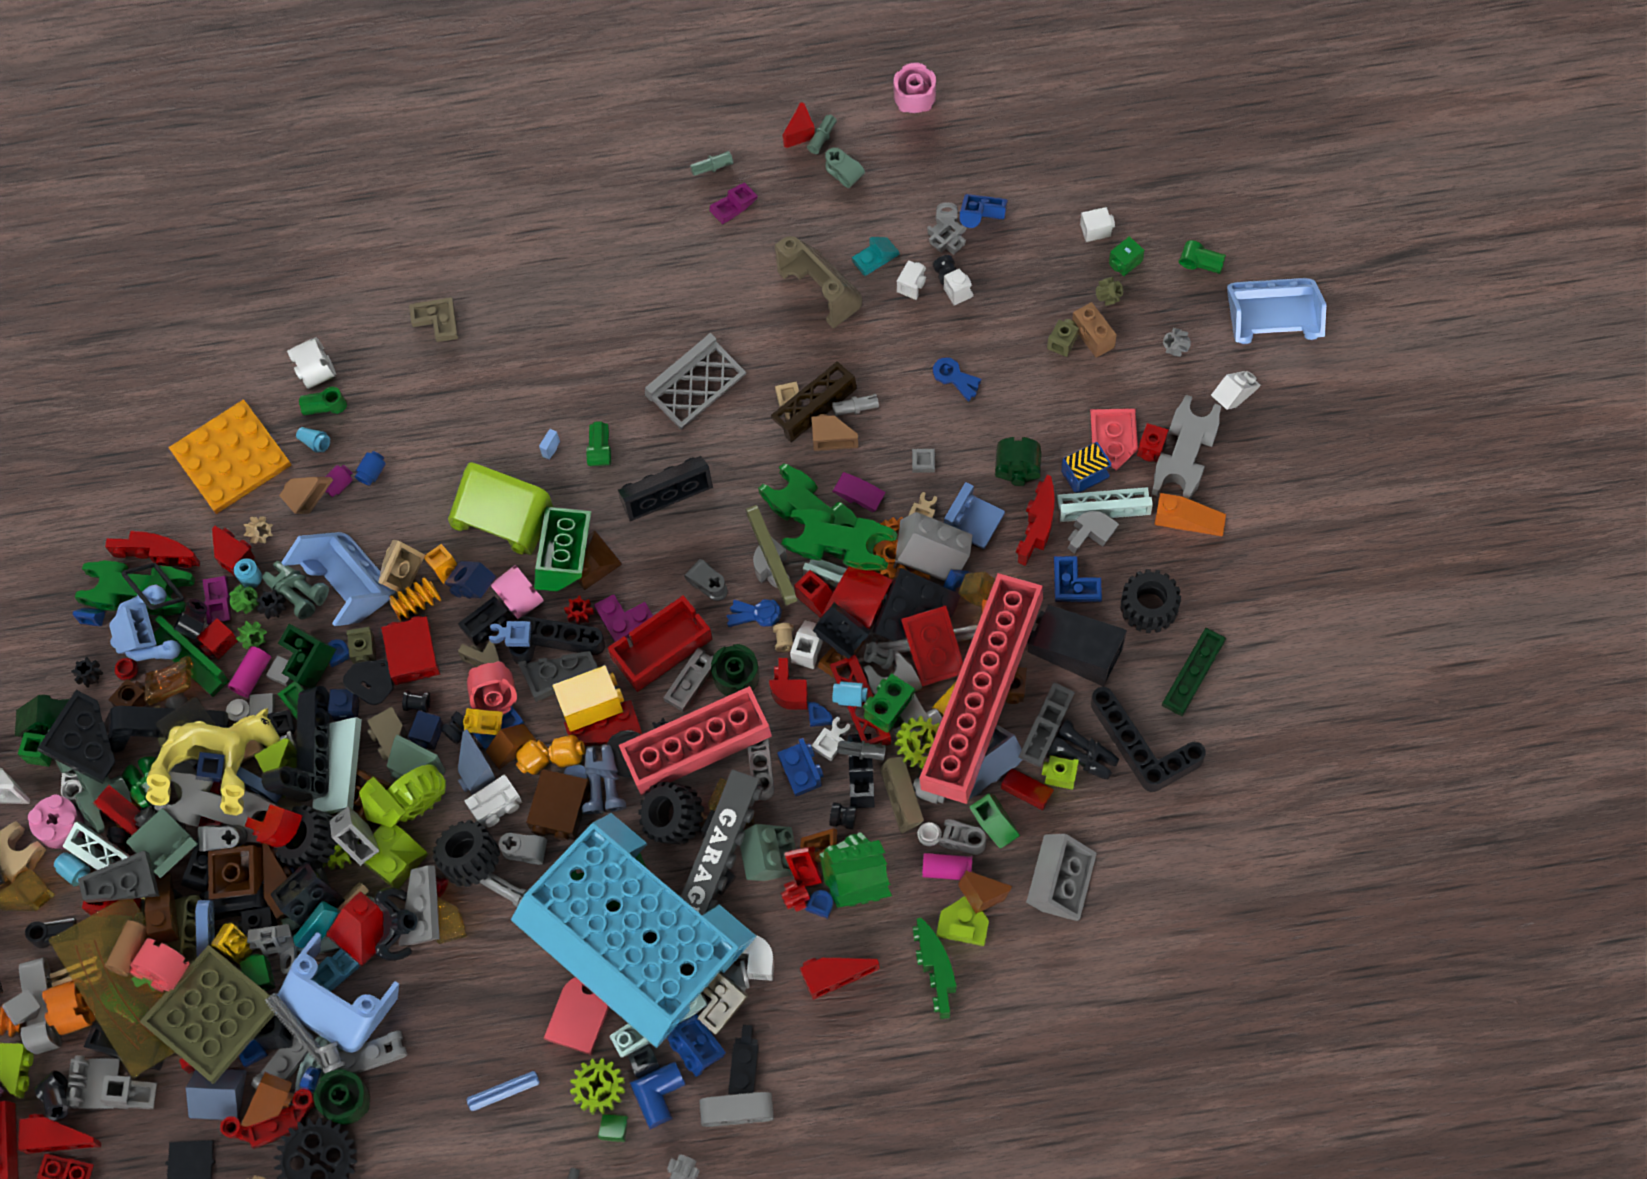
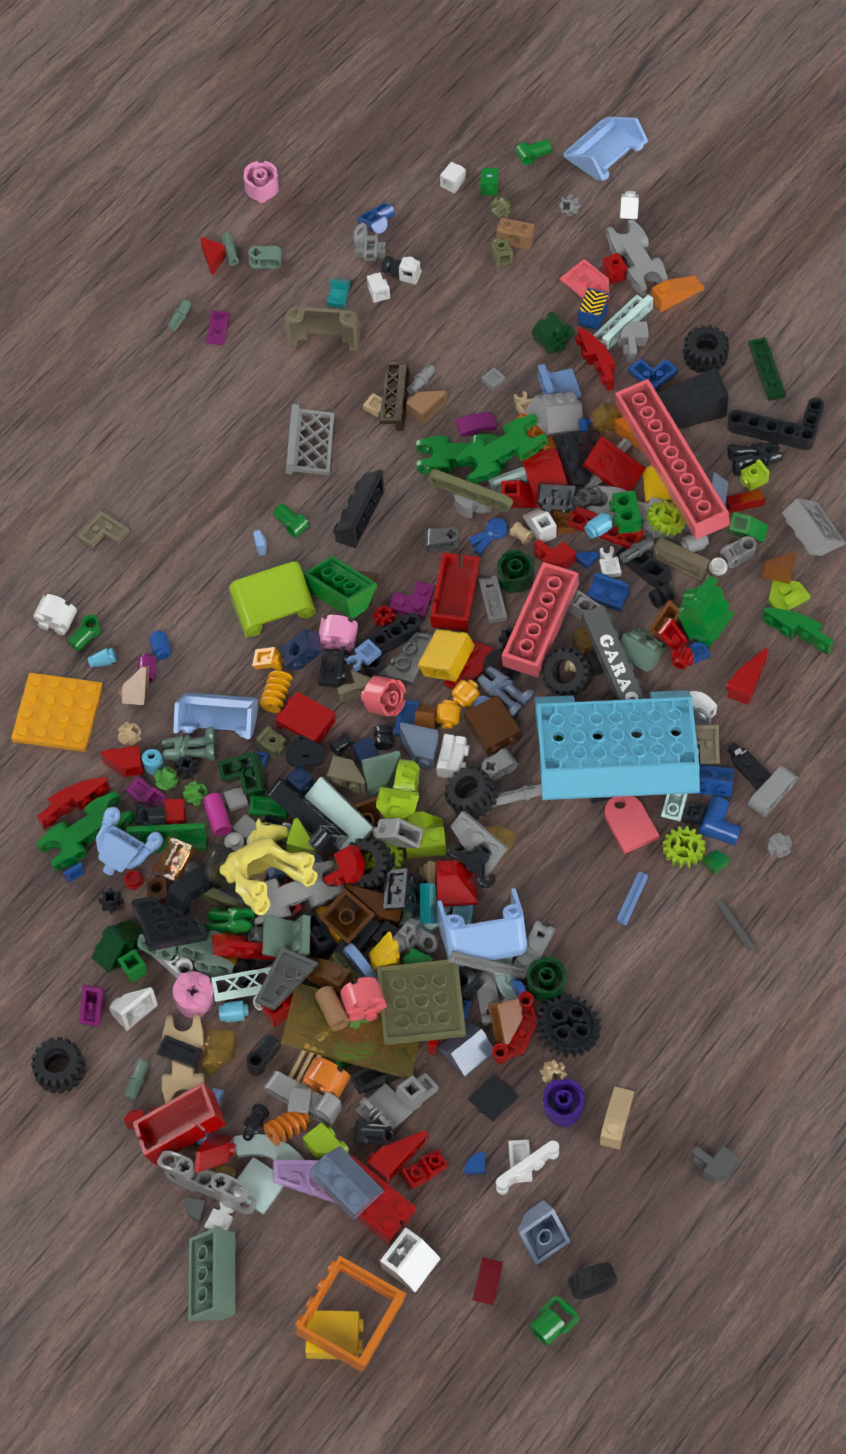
camera: 45 degrees left, 5 degrees down
(141, 595) = (82, 817): black piece -> none
(209, 767) = (273, 865): dark blue brick -> none
(218, 837) = (315, 905): dark grey piece -> none
(330, 1057) = (526, 961): light grey bush -> none
(400, 566) = (244, 676): tan slope -> none
(482, 721) = (398, 715): yellow bracket -> none
(945, 866) = (746, 574): dark pink pin -> none
(948, 371) = (454, 321): blue piece -> none
(1046, 725) = (720, 456): dark grey slope -> none

